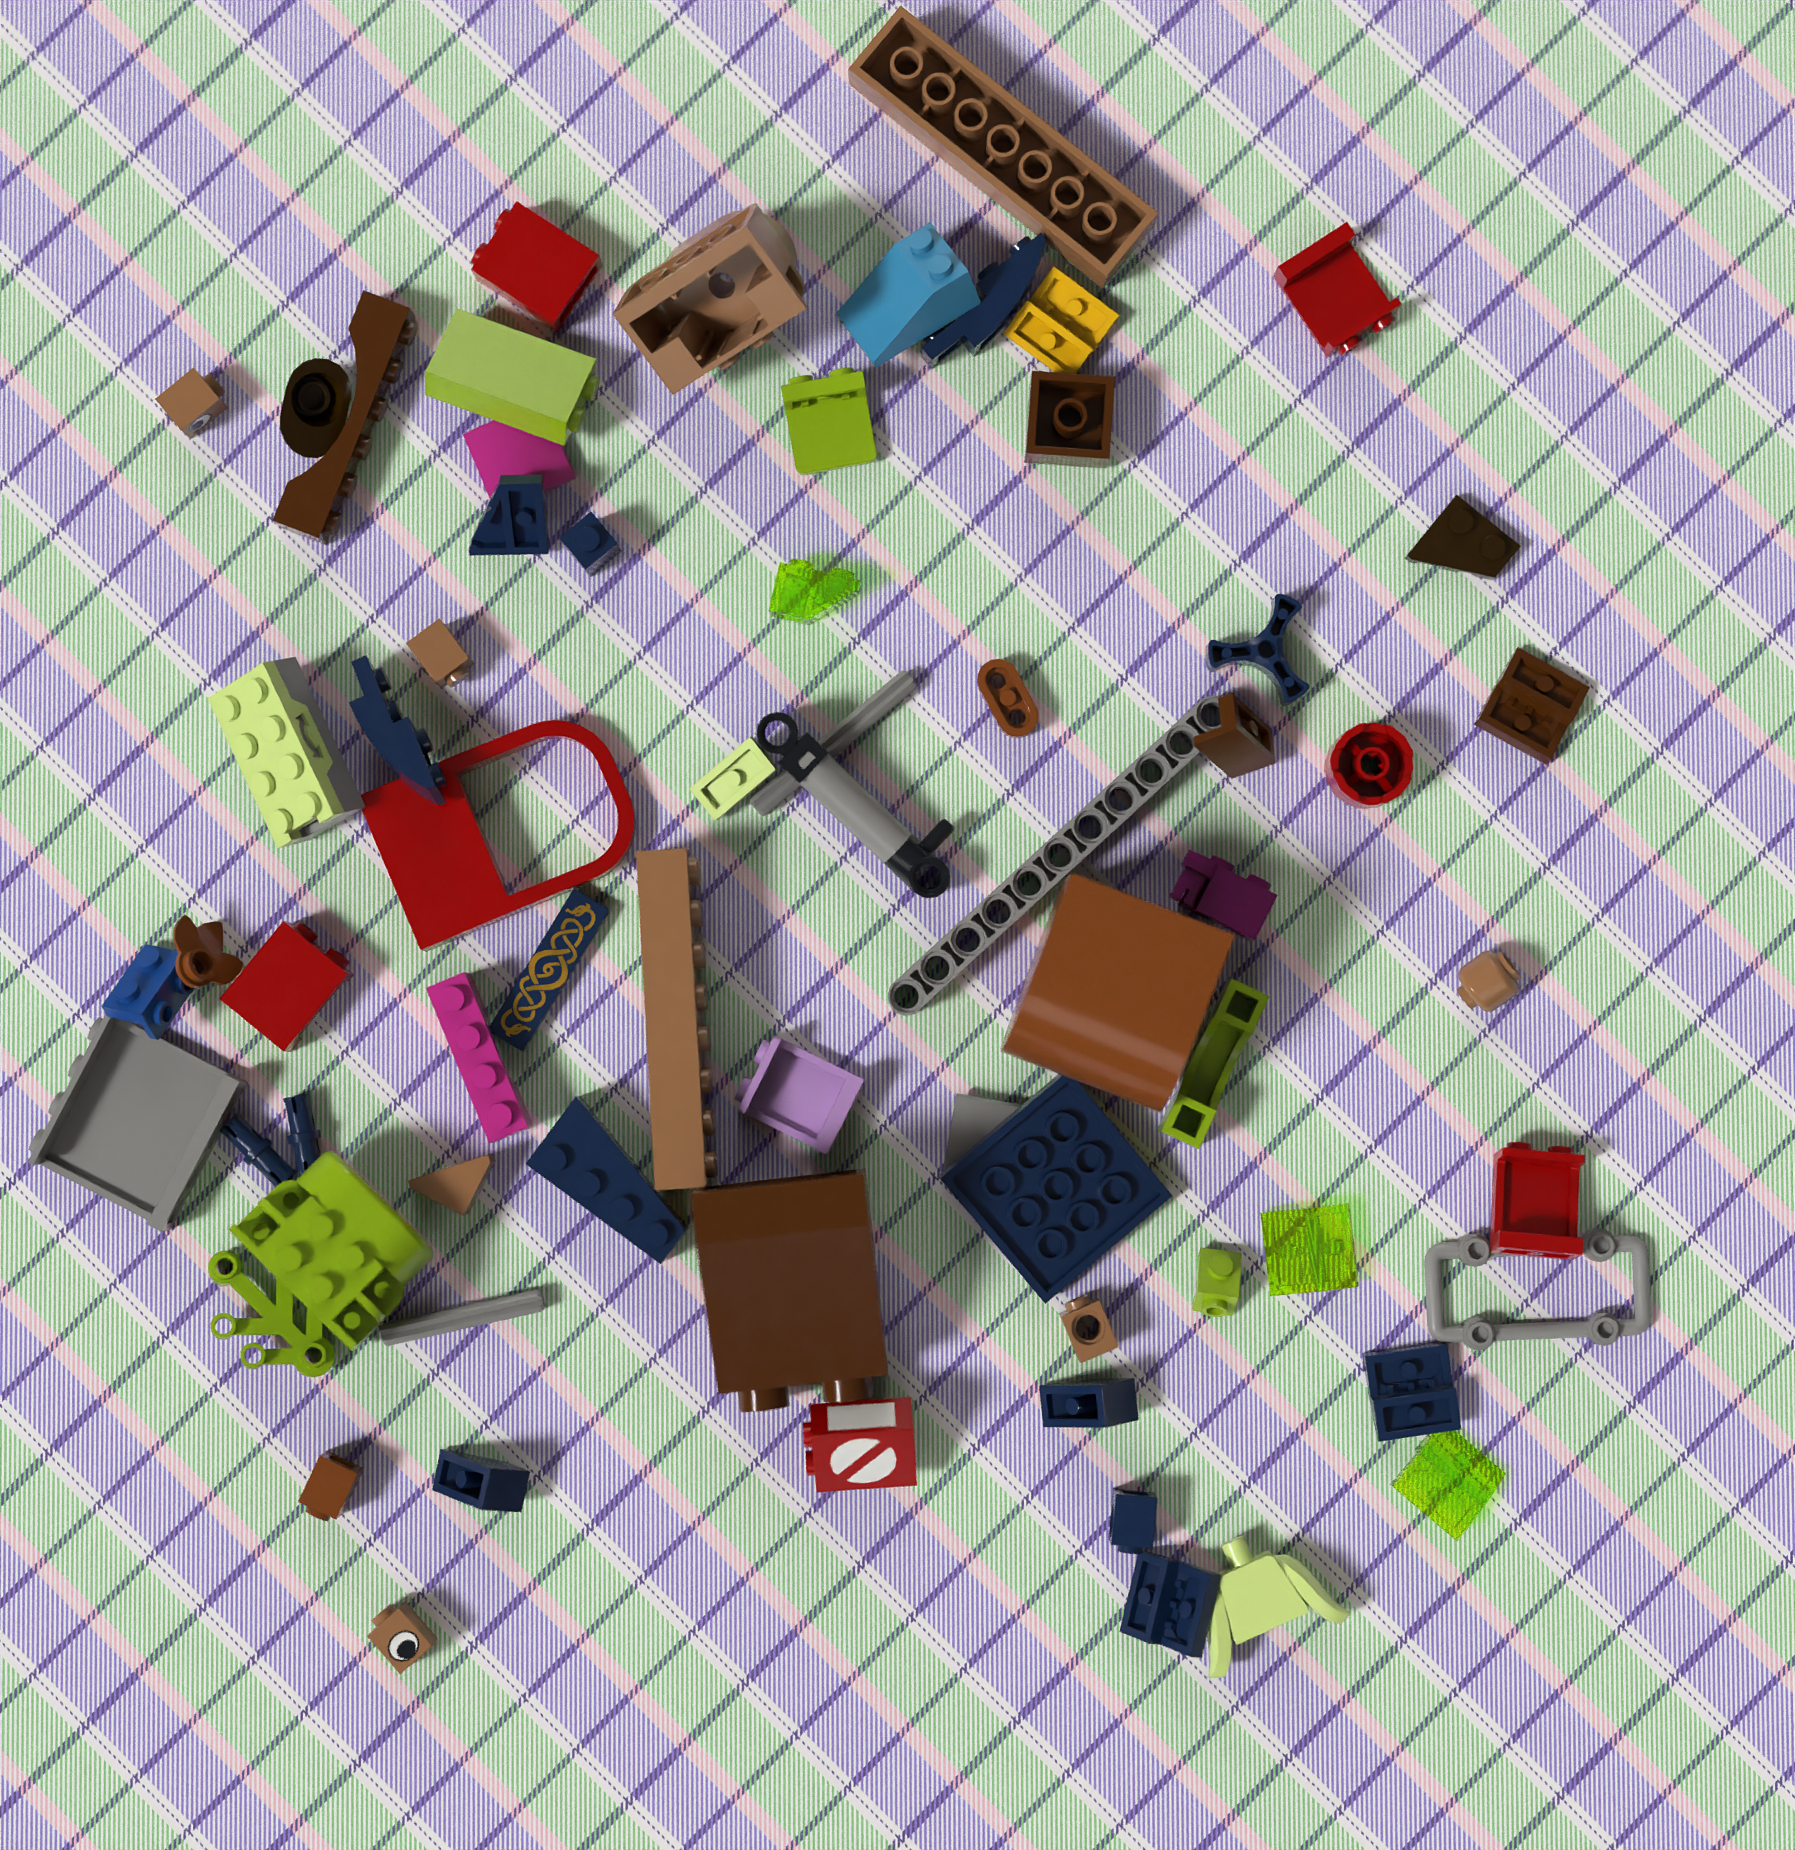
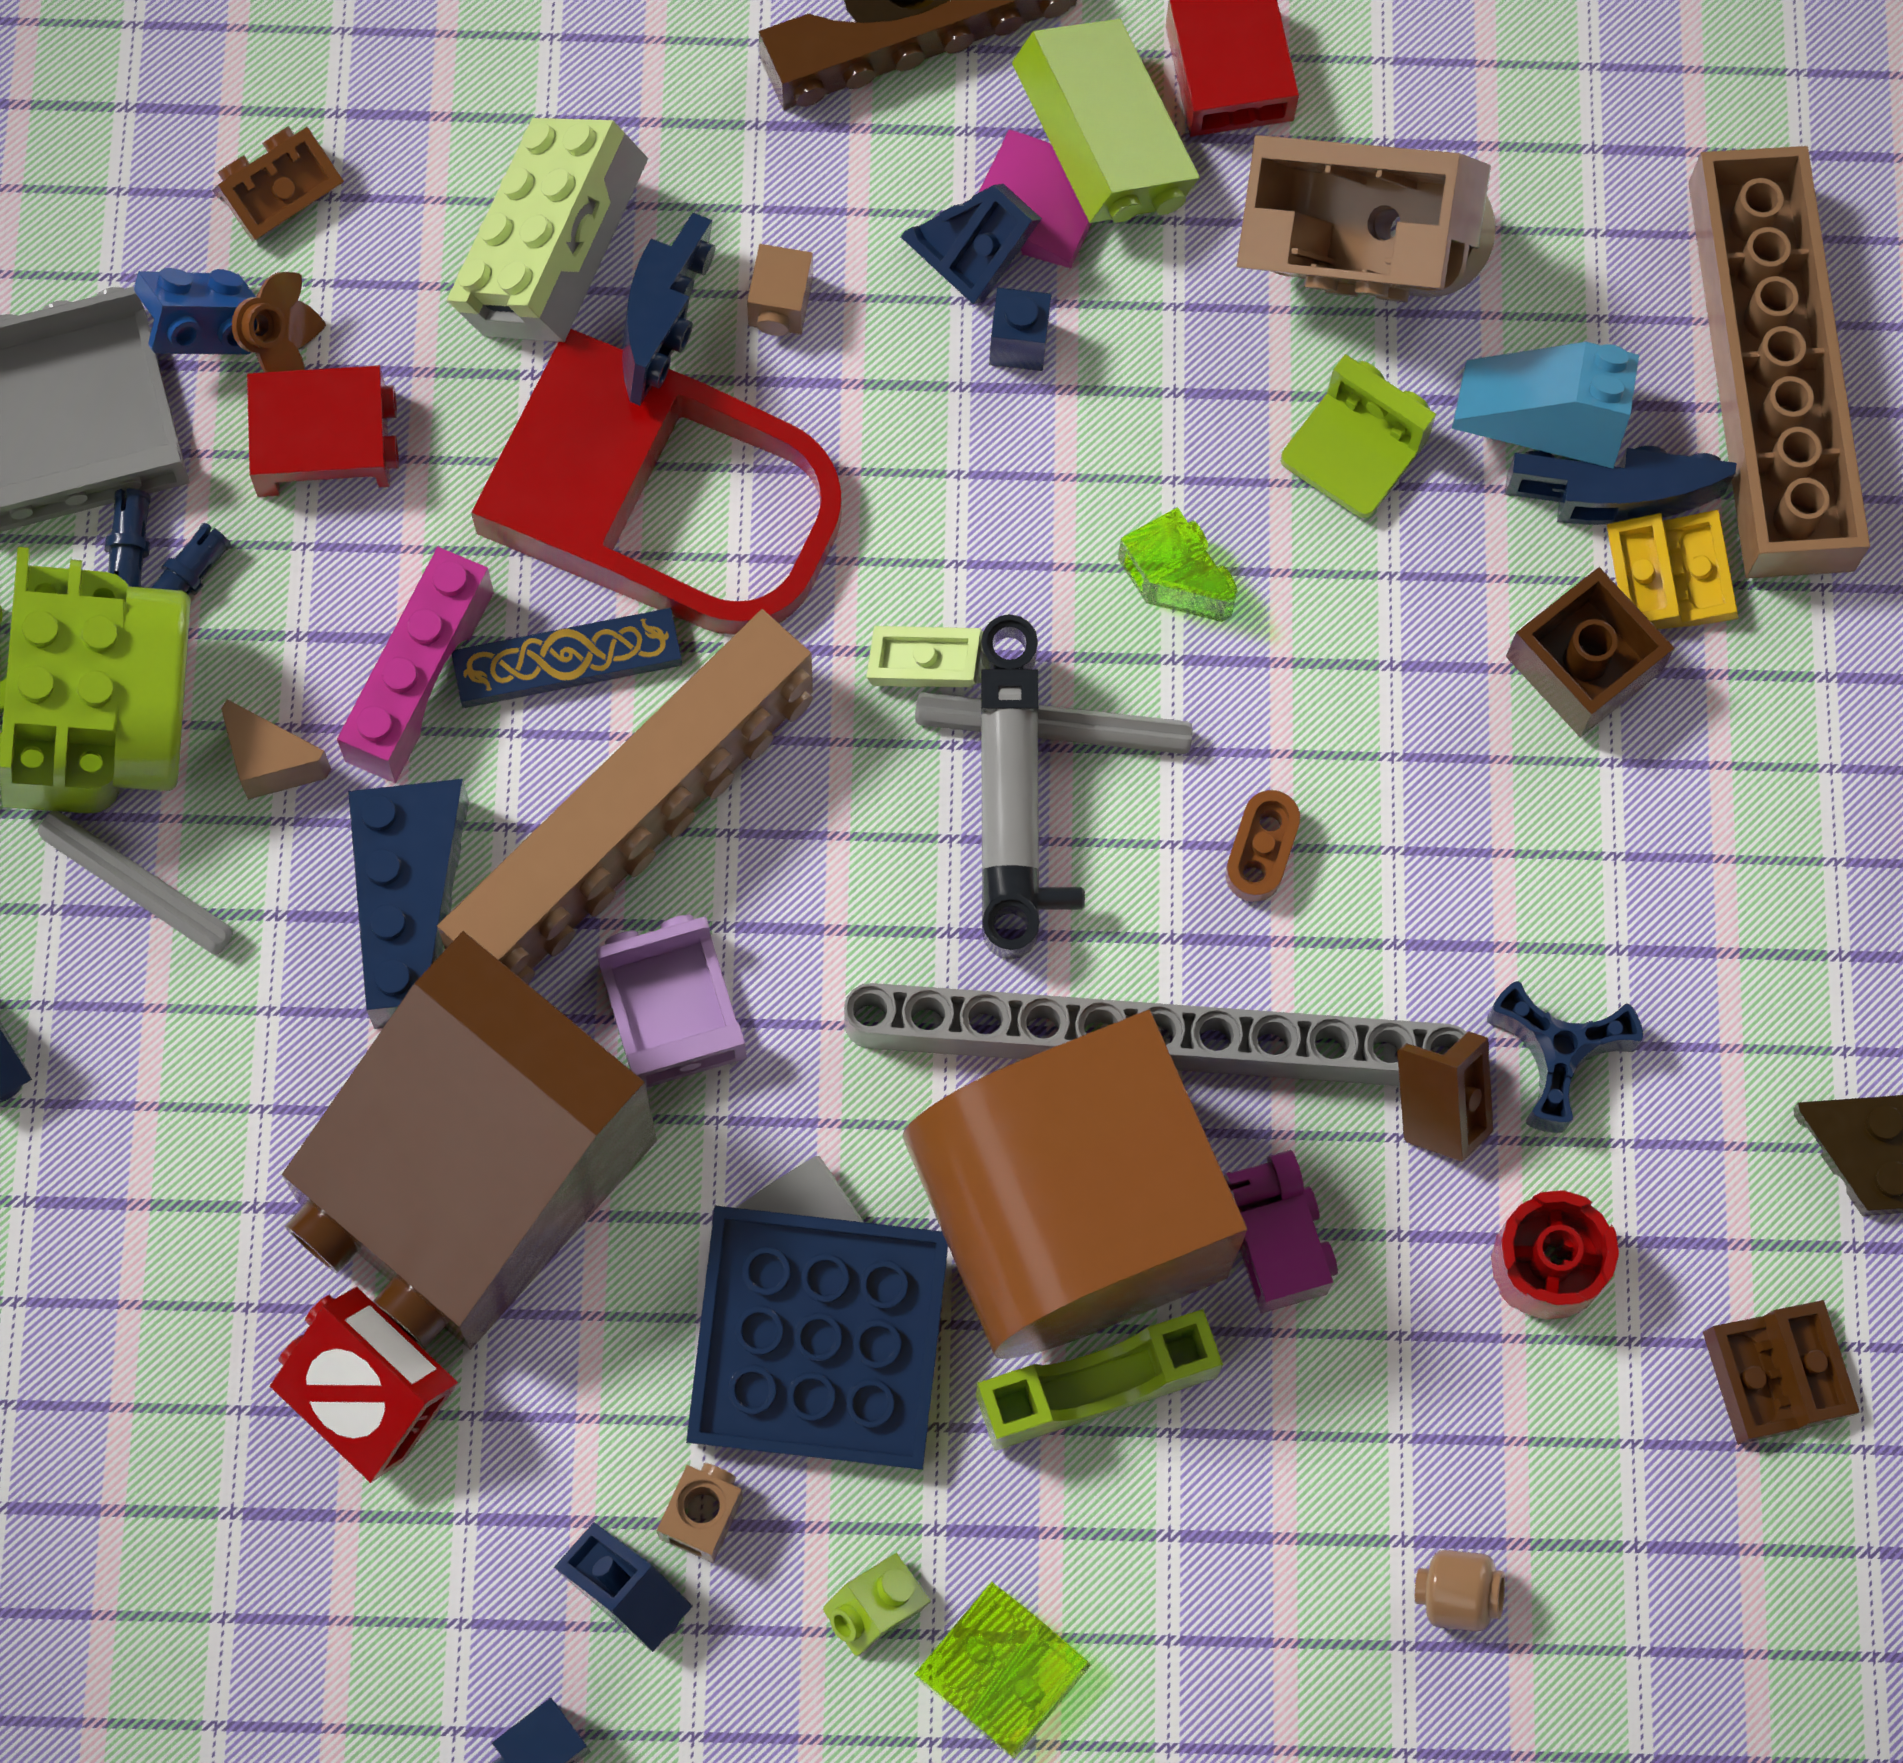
camera: 45 degrees right, 15 degrees down
(107, 873) = (278, 182): none -> dark orange bracket

